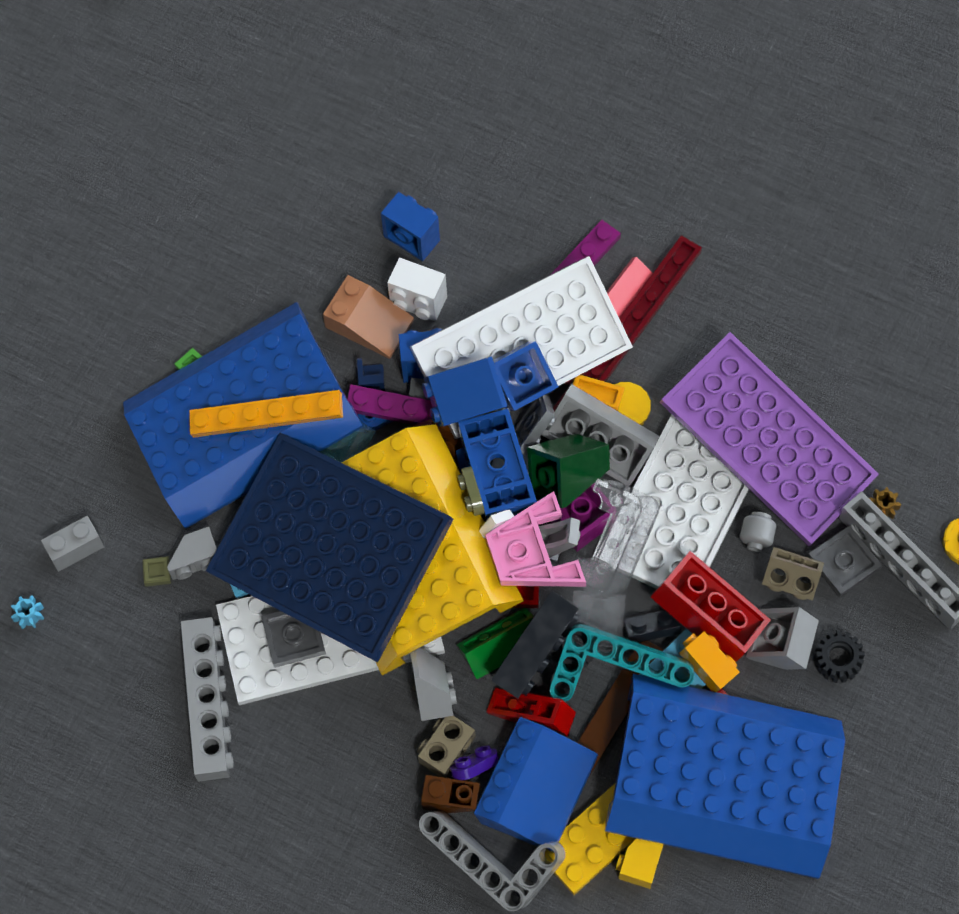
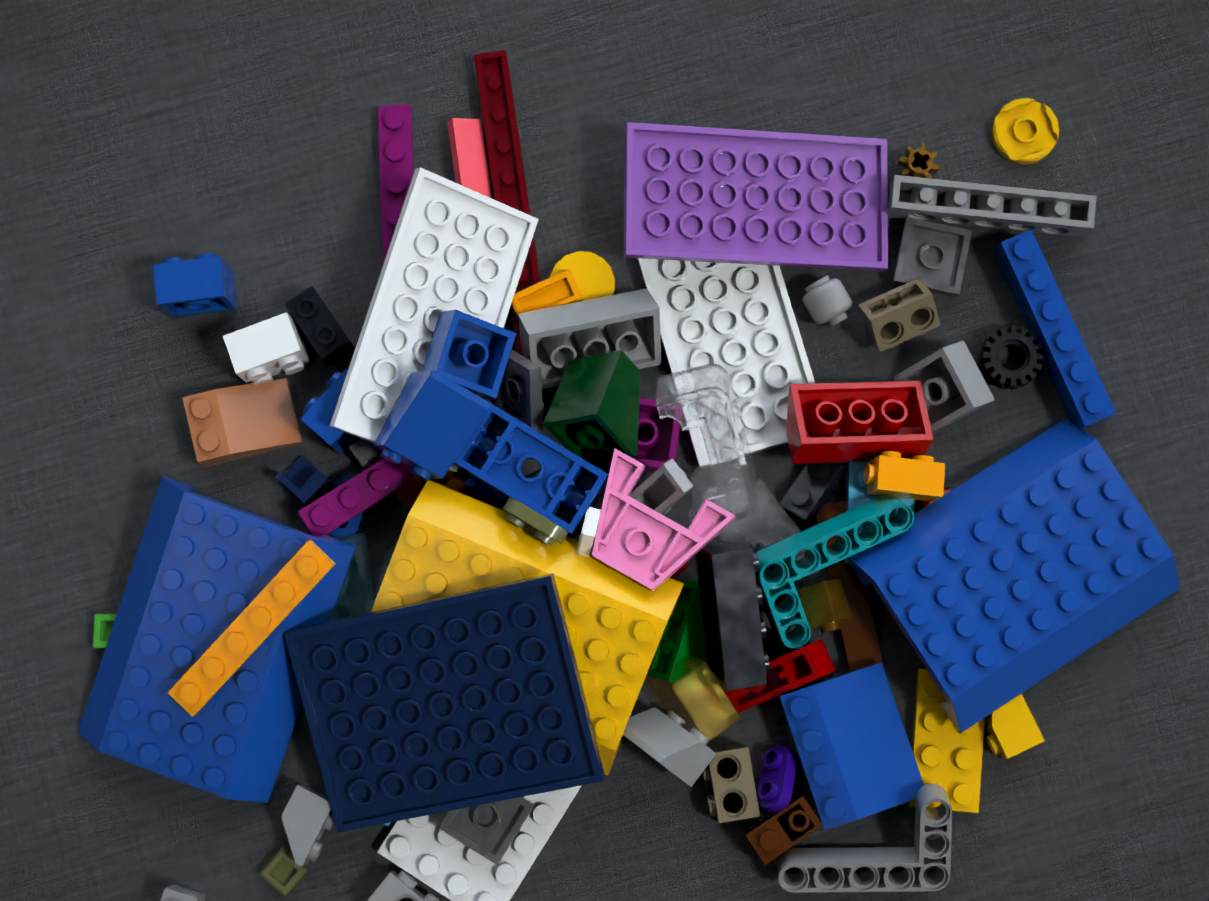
camera: 40 degrees left, 15 degrees up
(457, 299) = (319, 326): none -> black brick
(474, 681) = (704, 699): none -> clear yellow panel
(594, 693) = (825, 605): none -> pearl gold brick
(879, 663) = (1055, 329): none -> blue brick

